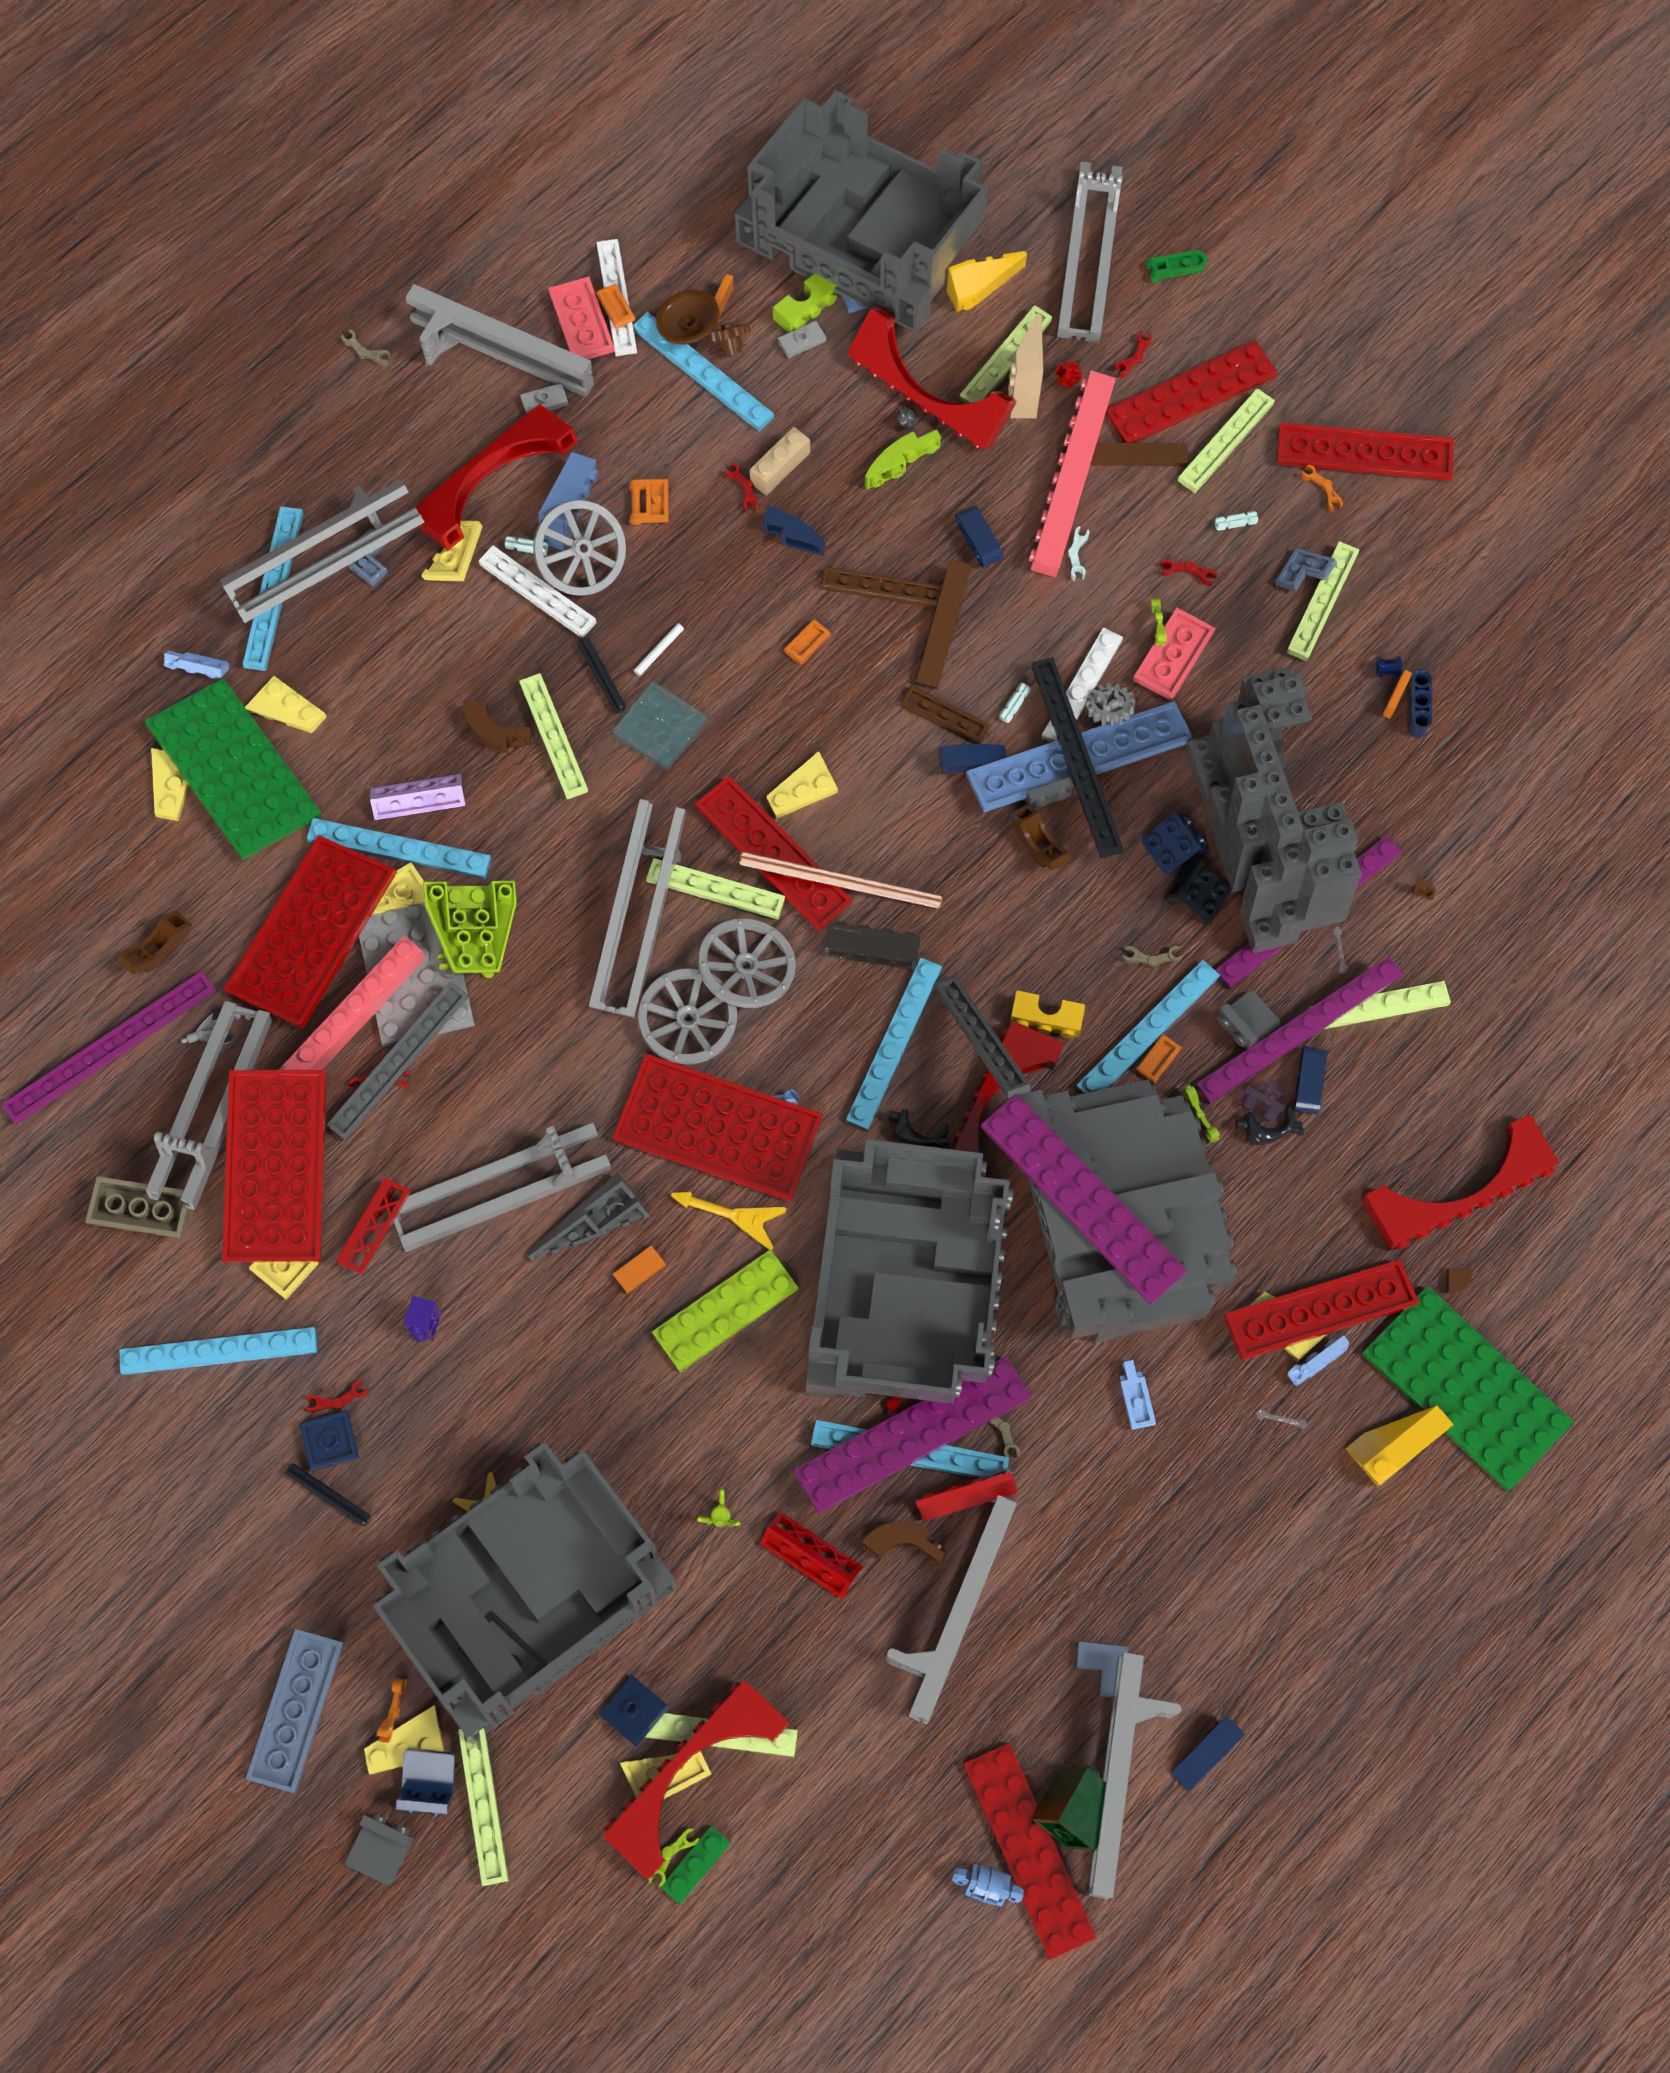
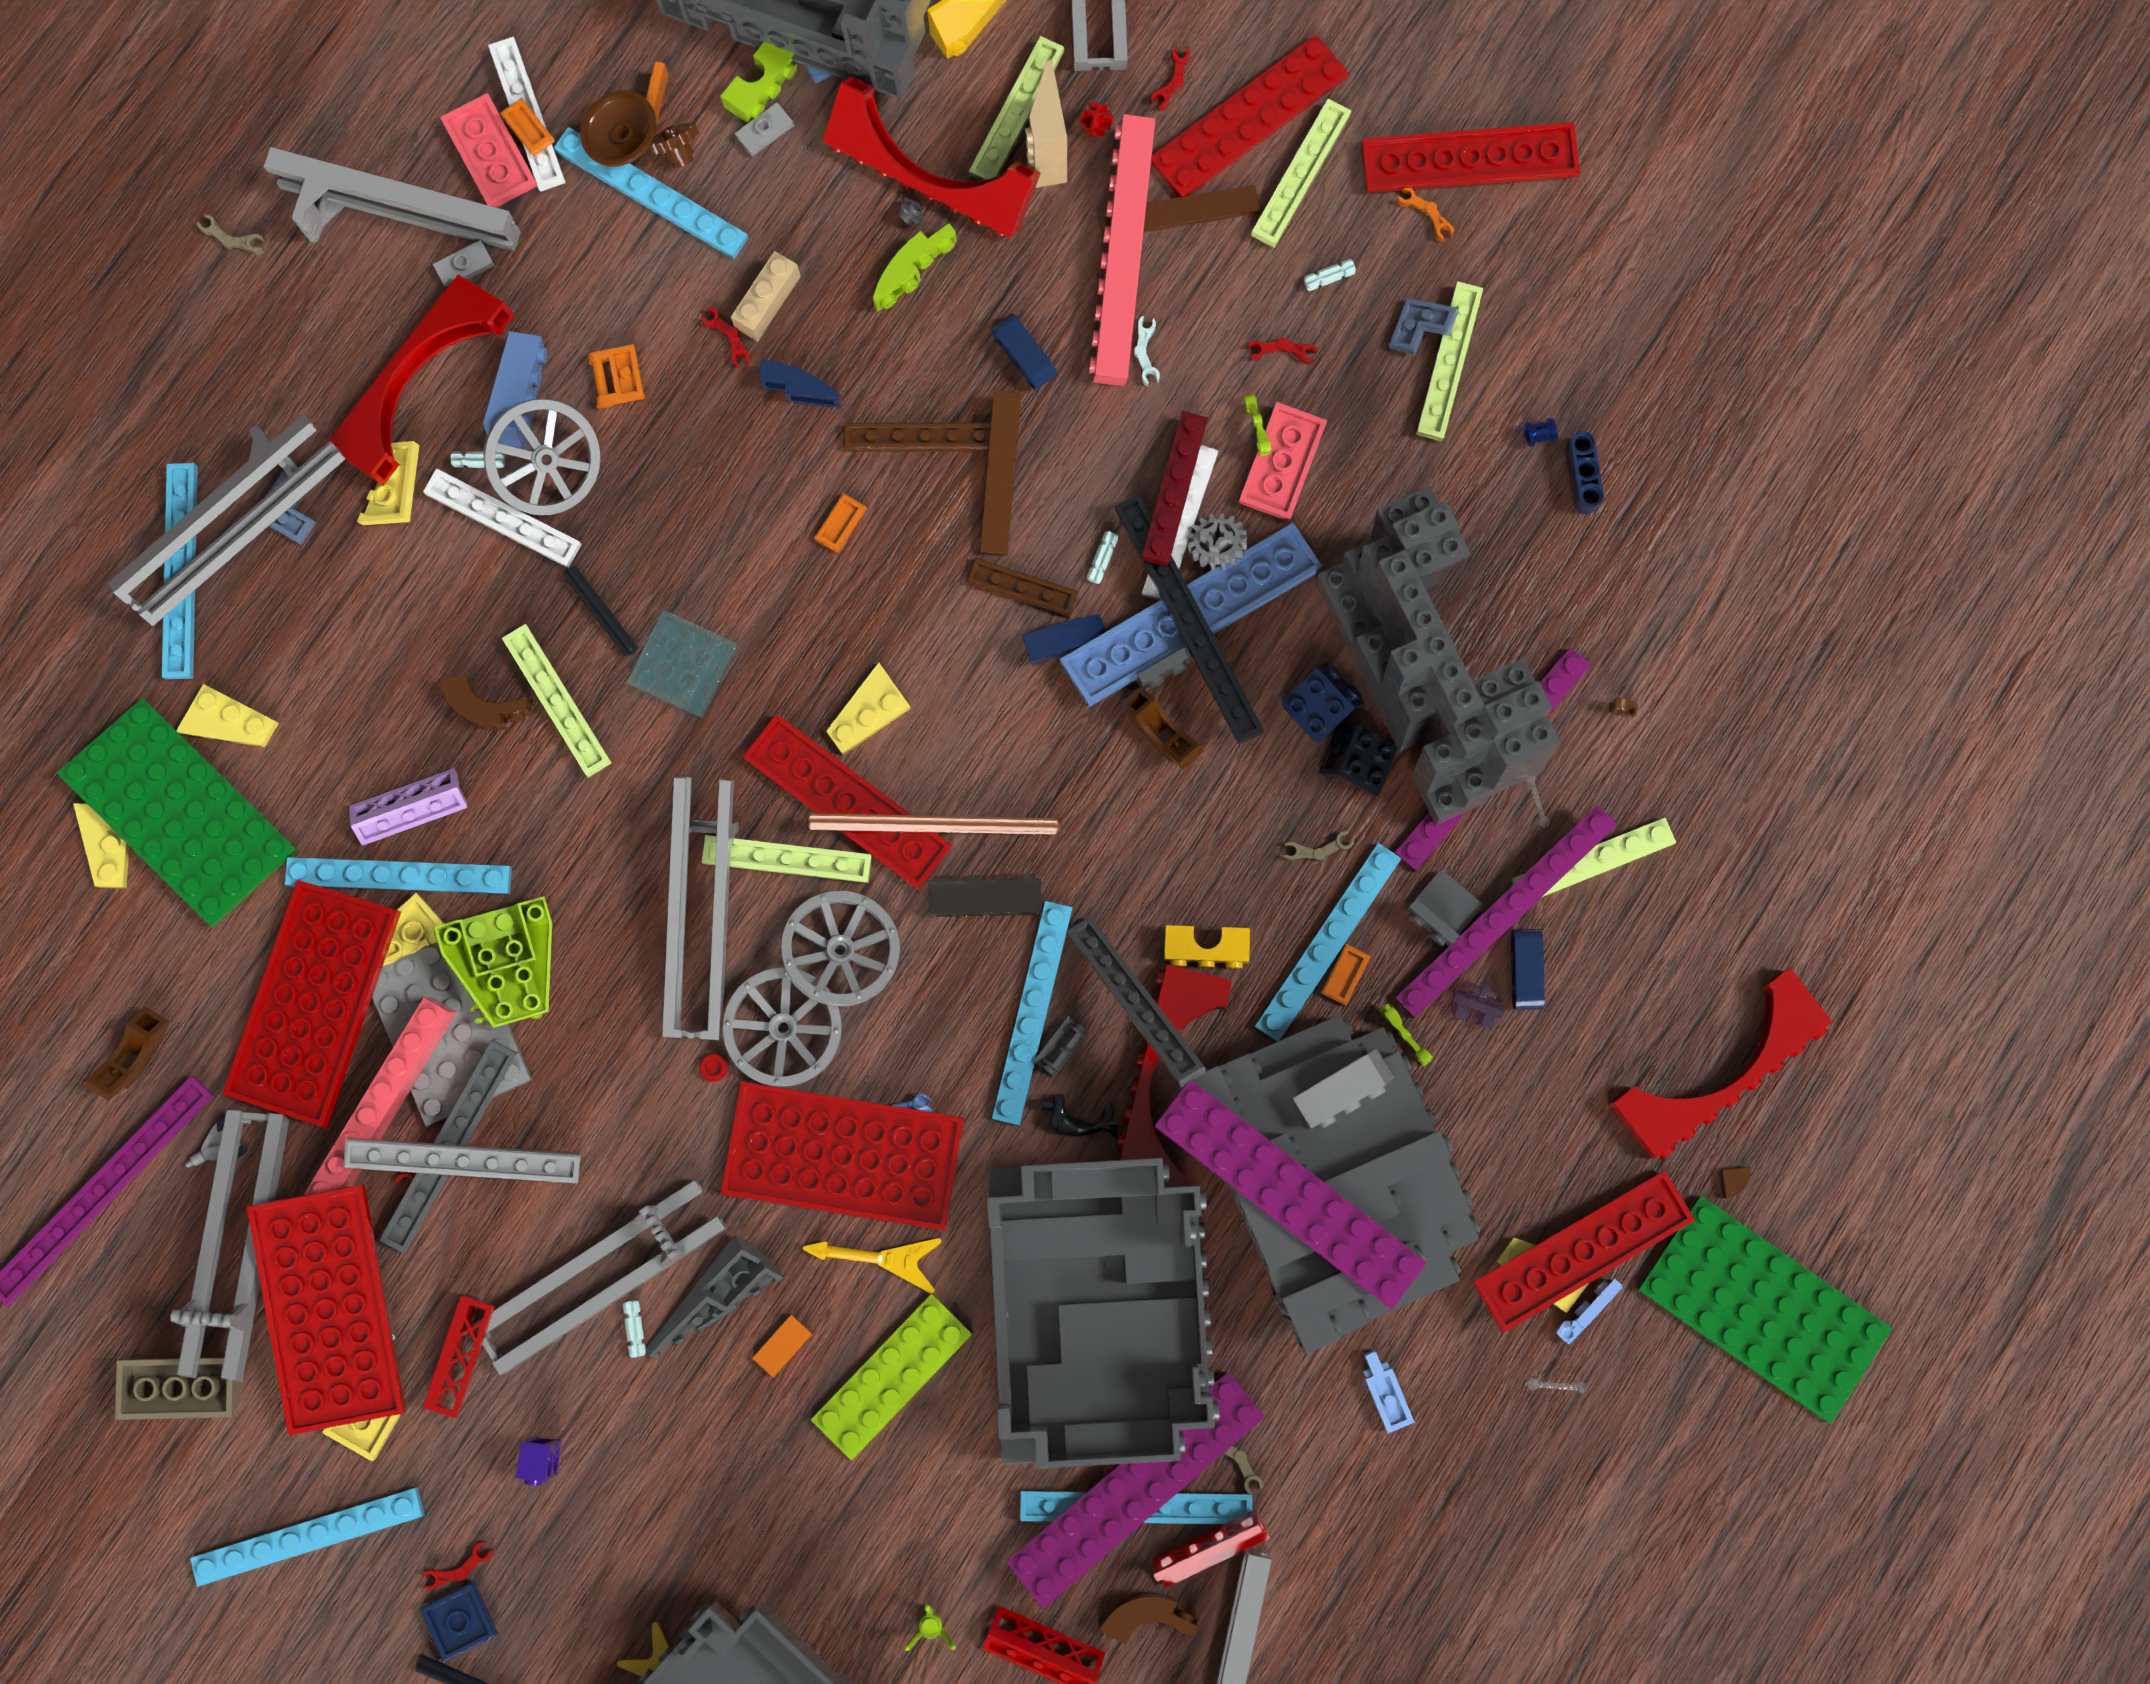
camera: 10 degrees left, 10 degrees up
(196, 663) = (106, 686): light blue hinge -> none
(407, 1071) = (461, 1160): none -> light grey tile
(519, 1233) = (634, 1328): none -> light aqua axle
(625, 1041) = (714, 1067): none -> red tile
(660, 647) = (663, 565): white bar -> none
(913, 1073) = (1061, 1046): none -> dark grey hinge
(1082, 657) = (1174, 488): none -> dark red plate
(1141, 1127) = (1344, 1090): none -> light grey wedge
(1260, 1135) = (1480, 1047): black animal -> none
(1395, 1444) = (1693, 1396): yellow wedge -> none
(1397, 693) = (1556, 465): orange tile -> none

